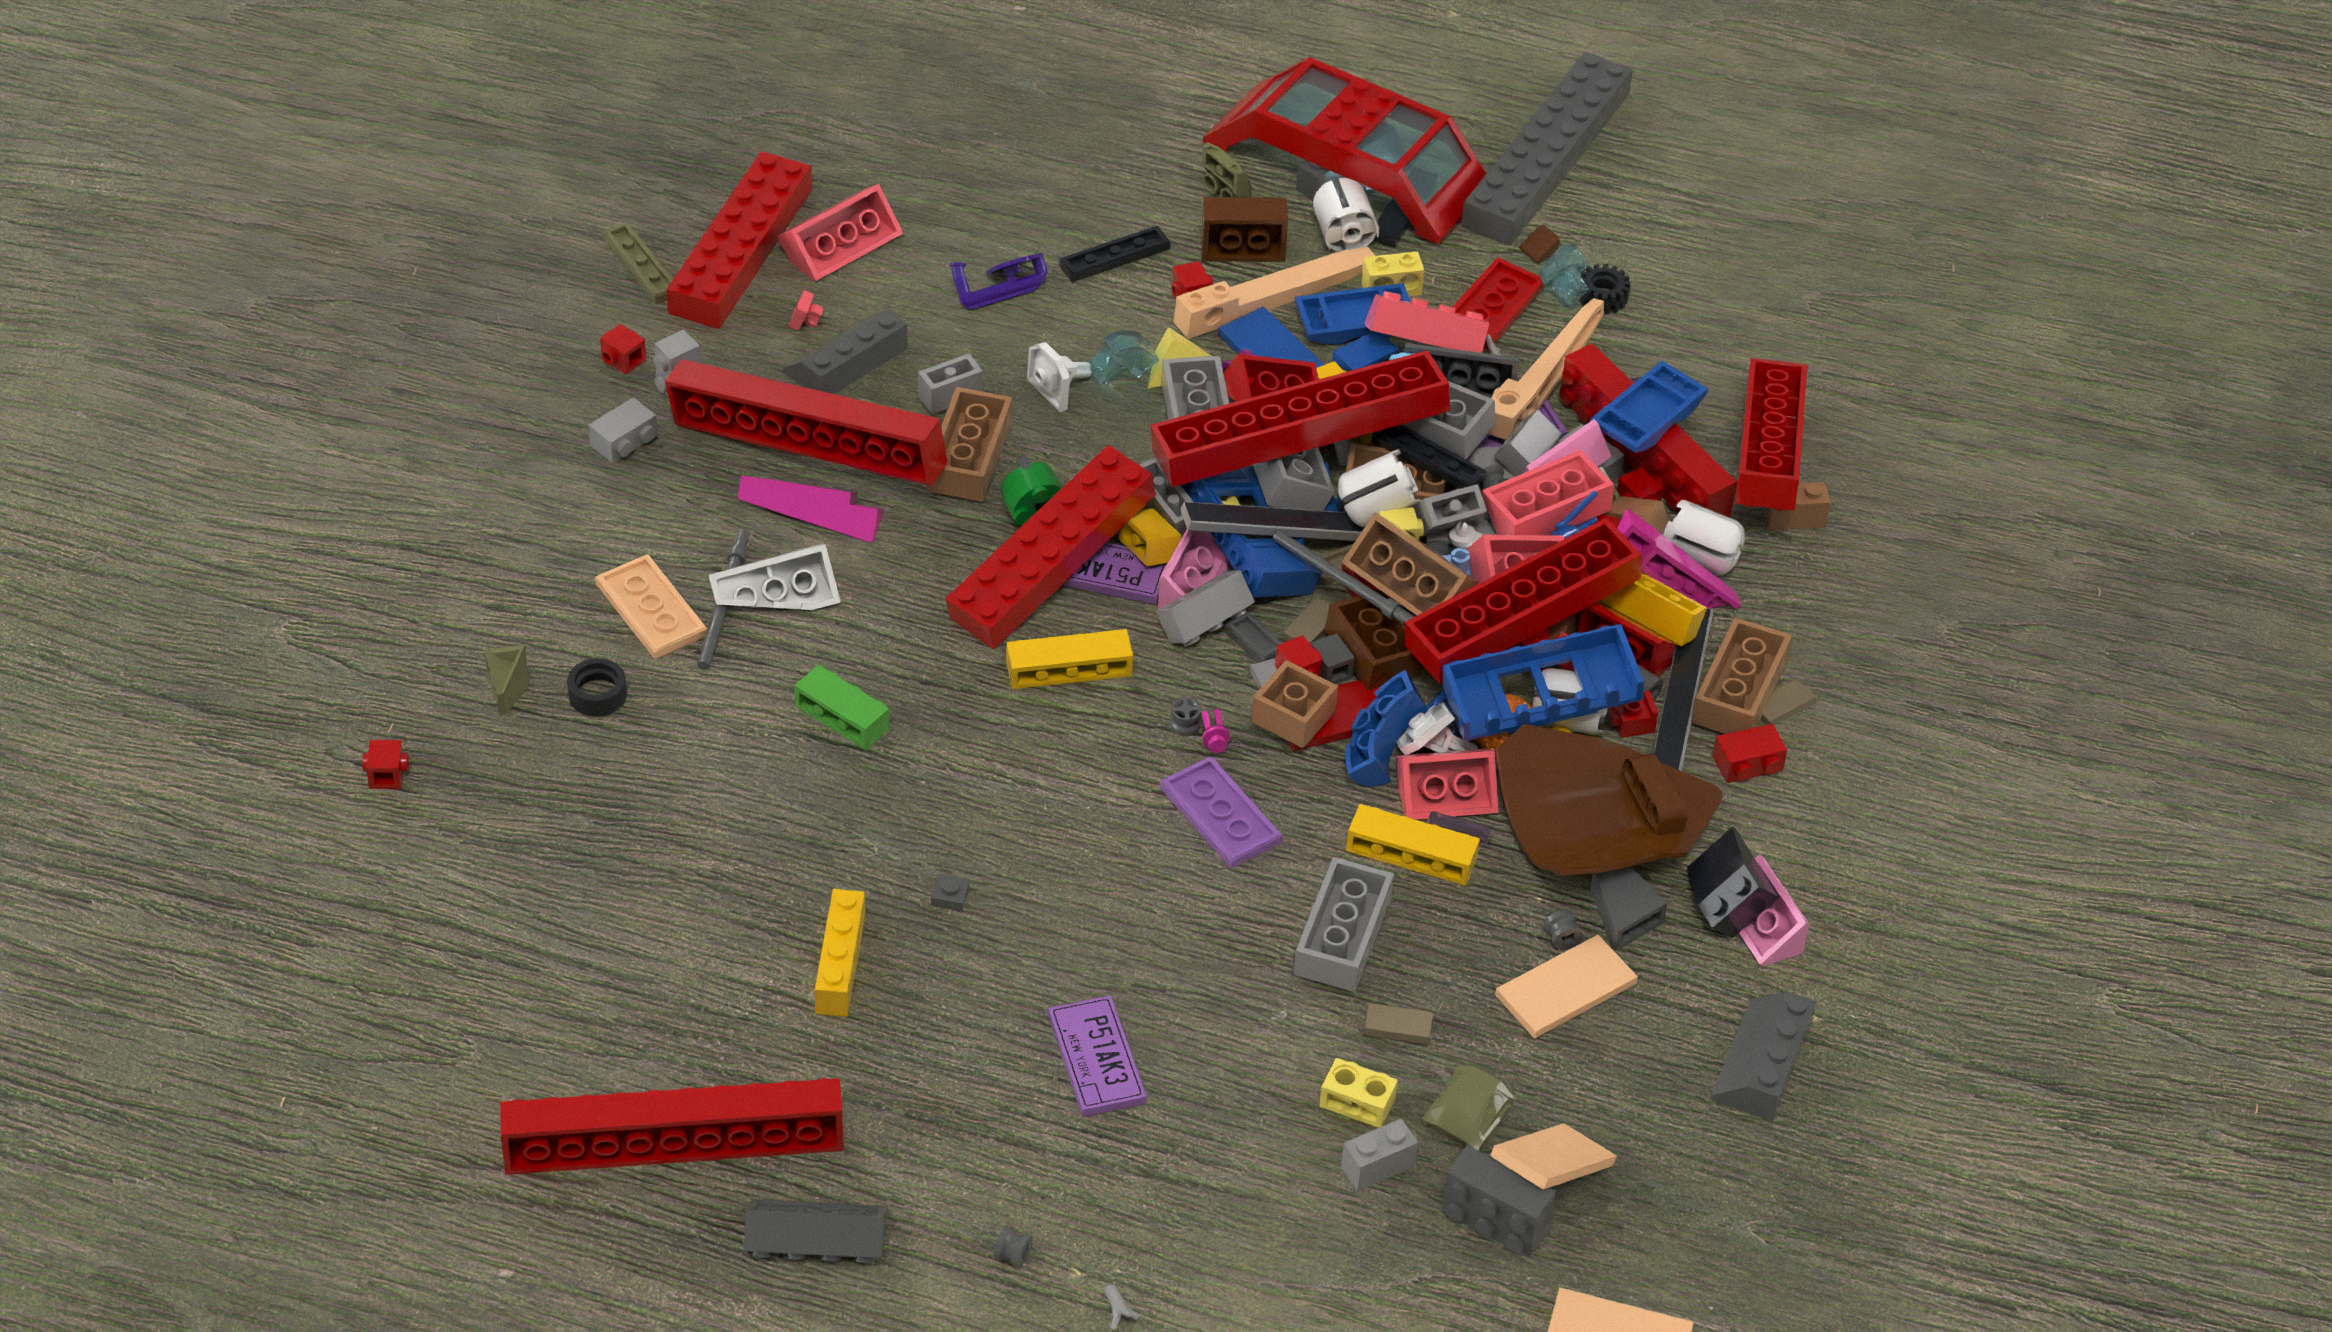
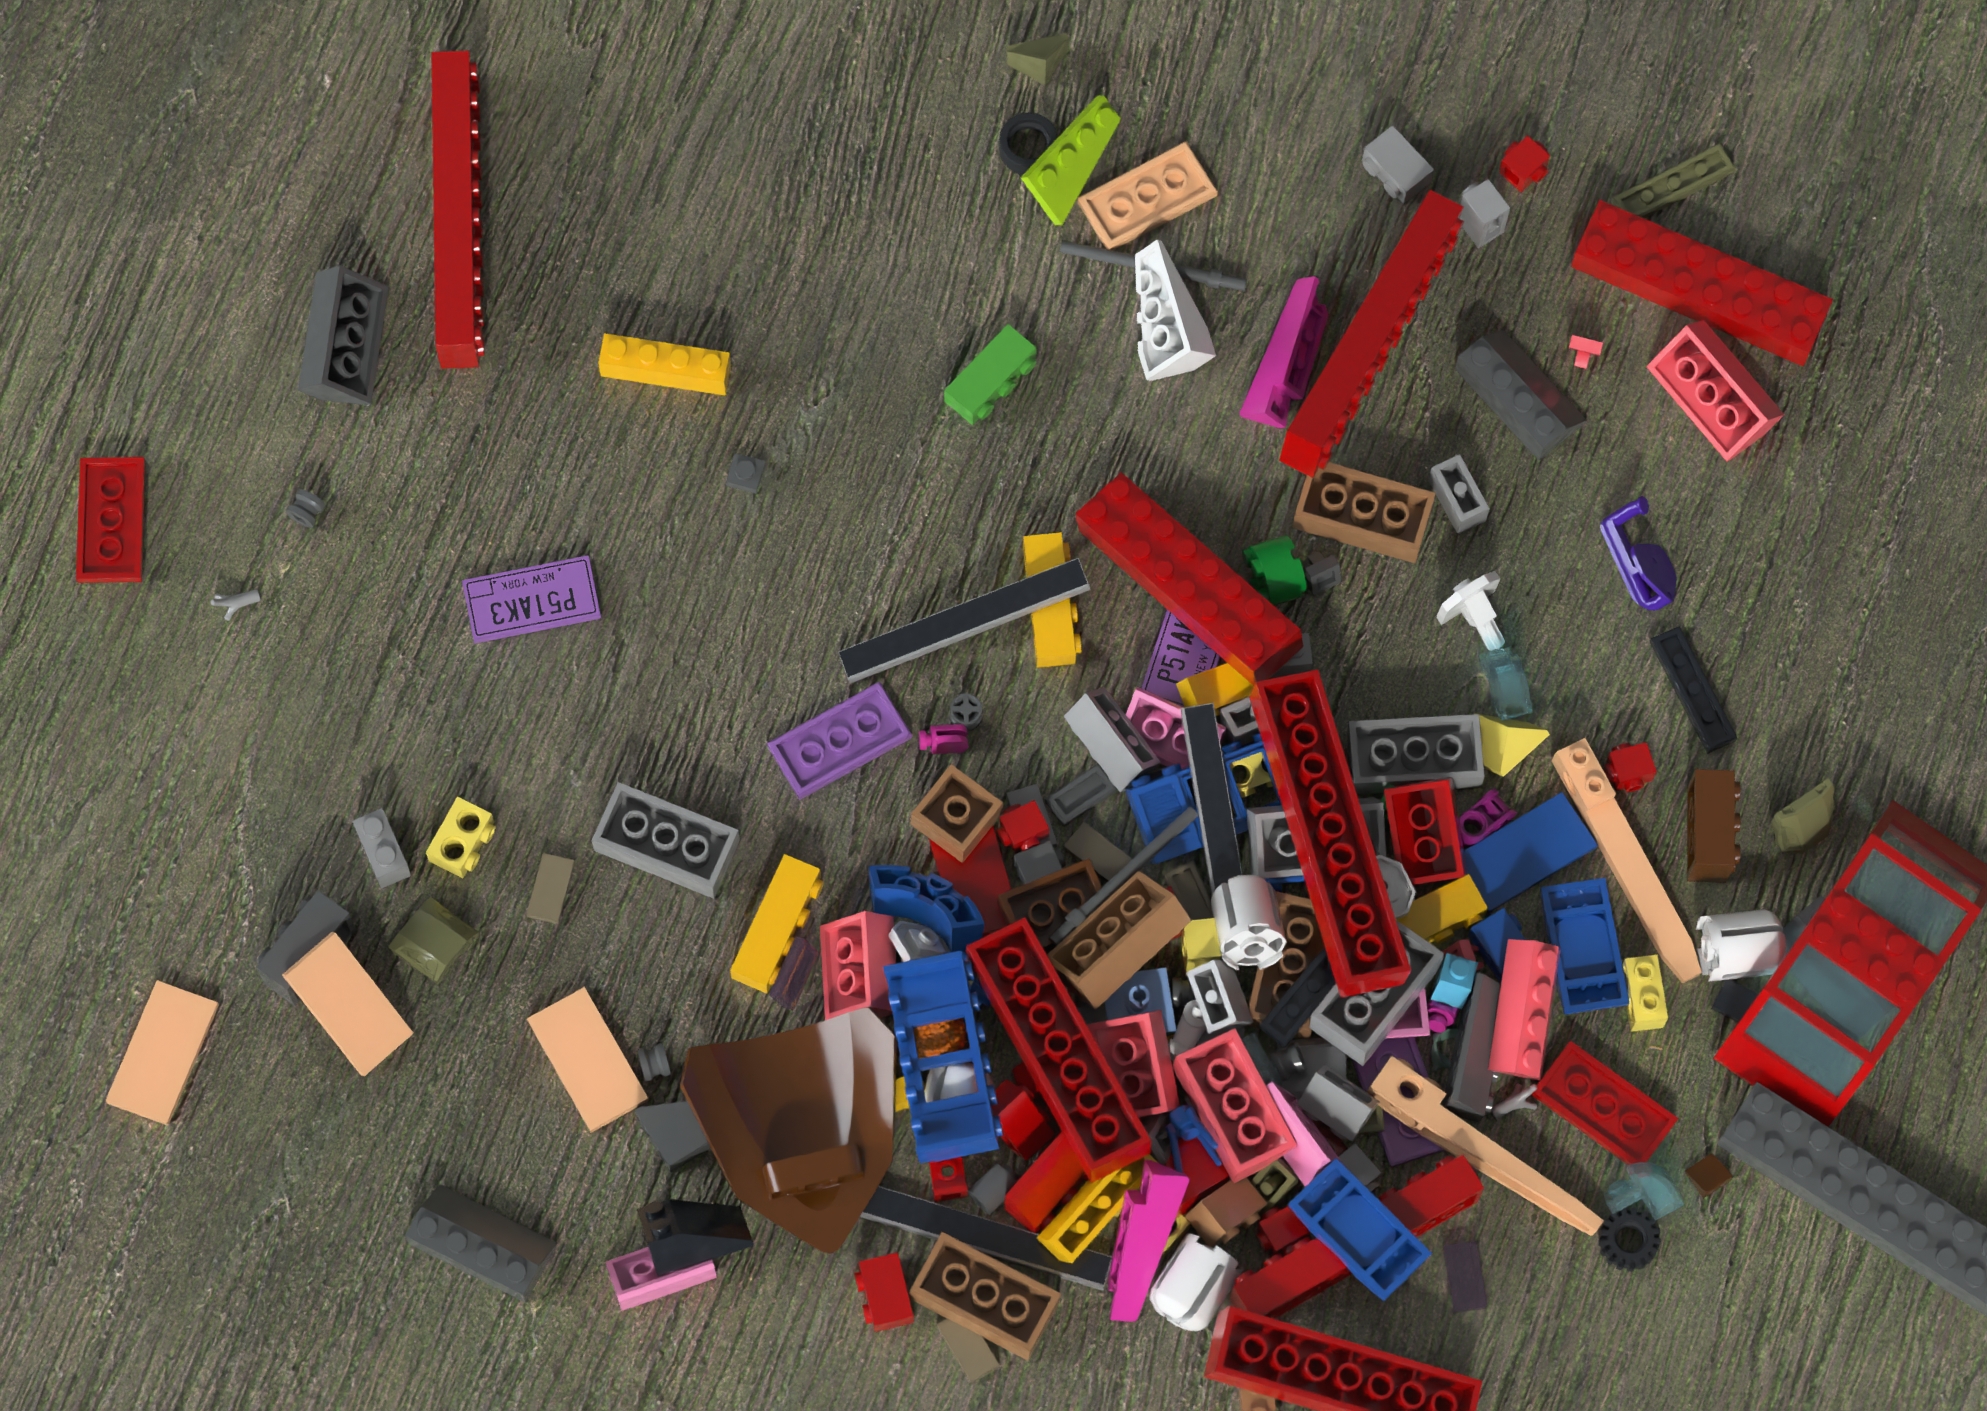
camera: 95 degrees right, 25 degrees up
(614, 651) = (1068, 162): none -> lime wing
(1100, 712) = (964, 620): none -> black tile

